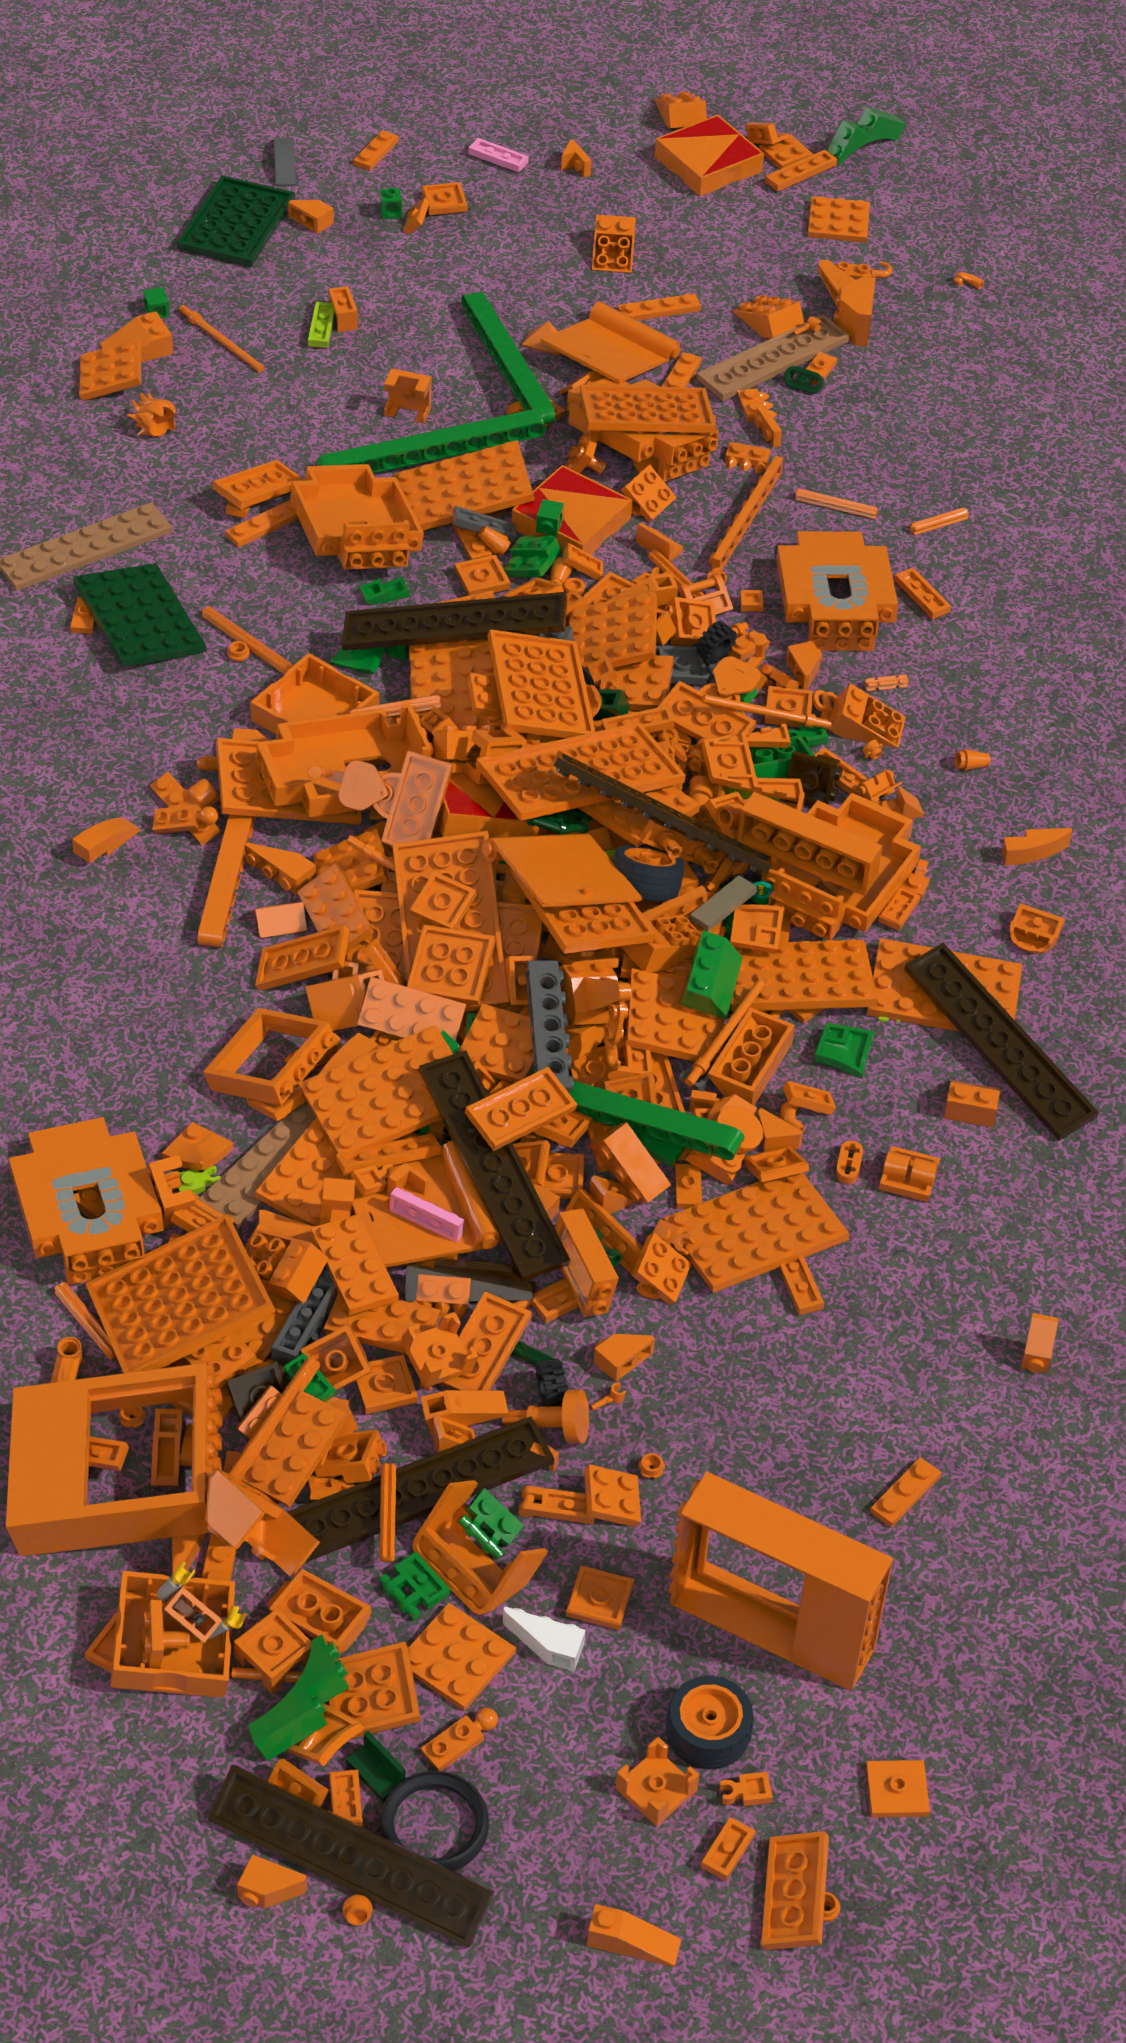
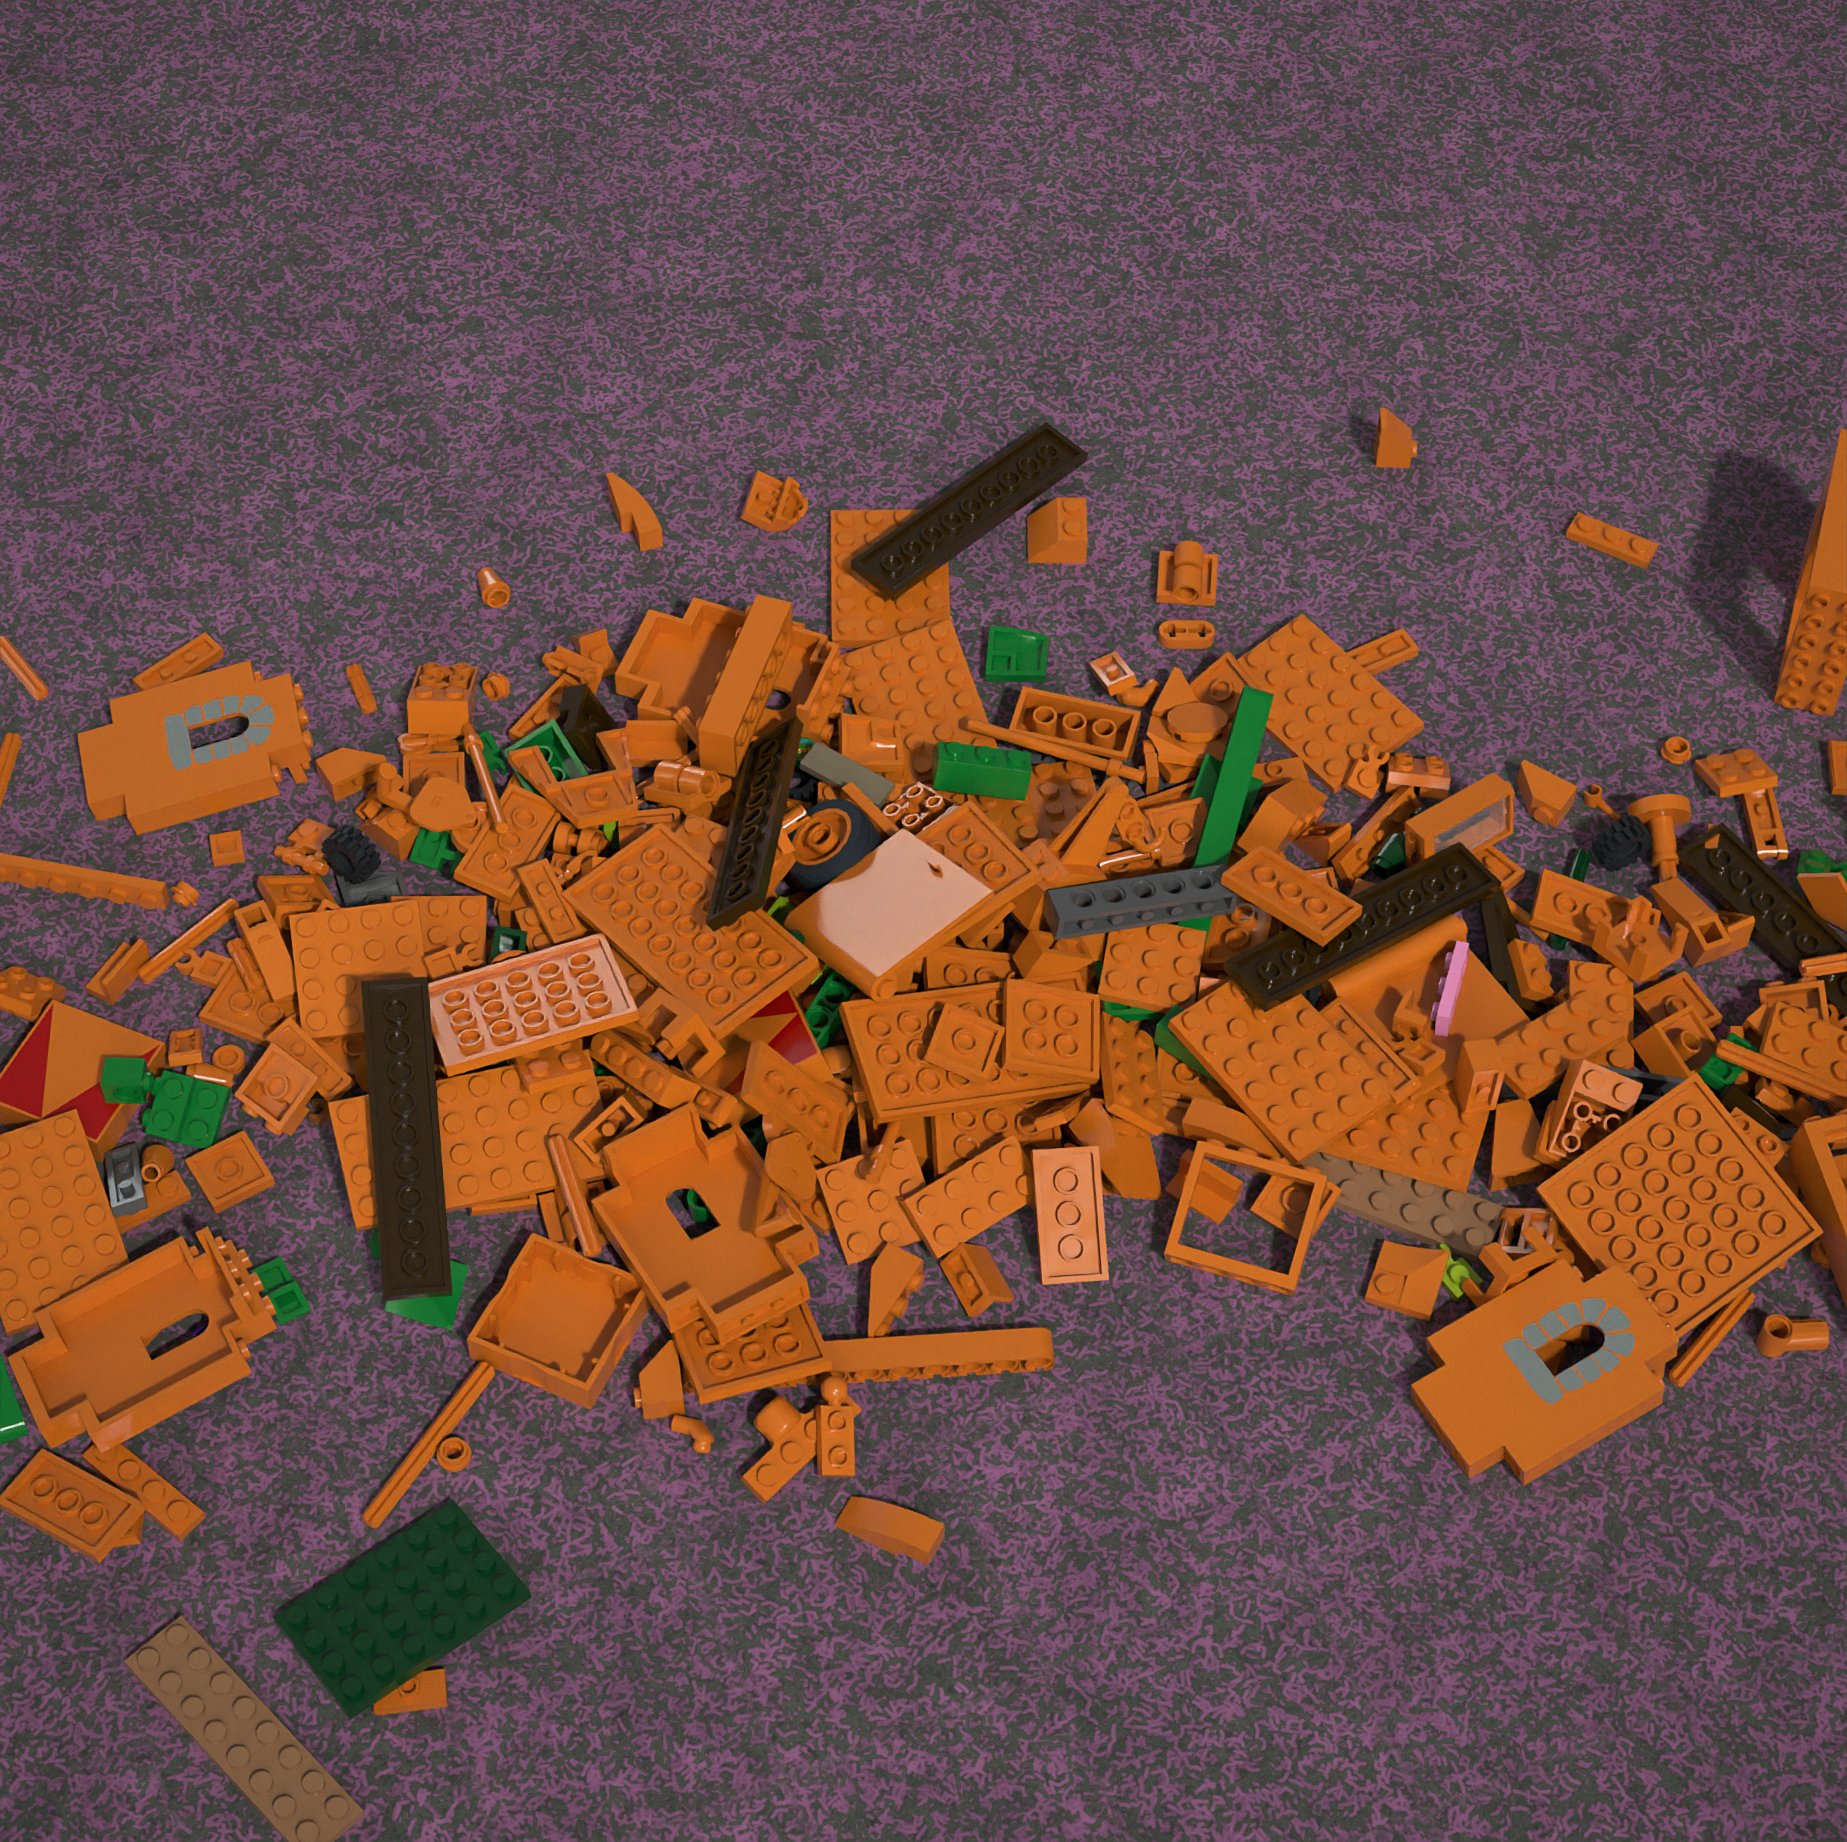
camera: 100 degrees left, 5 degrees up
(720, 598) = (239, 883): orange plate -> none

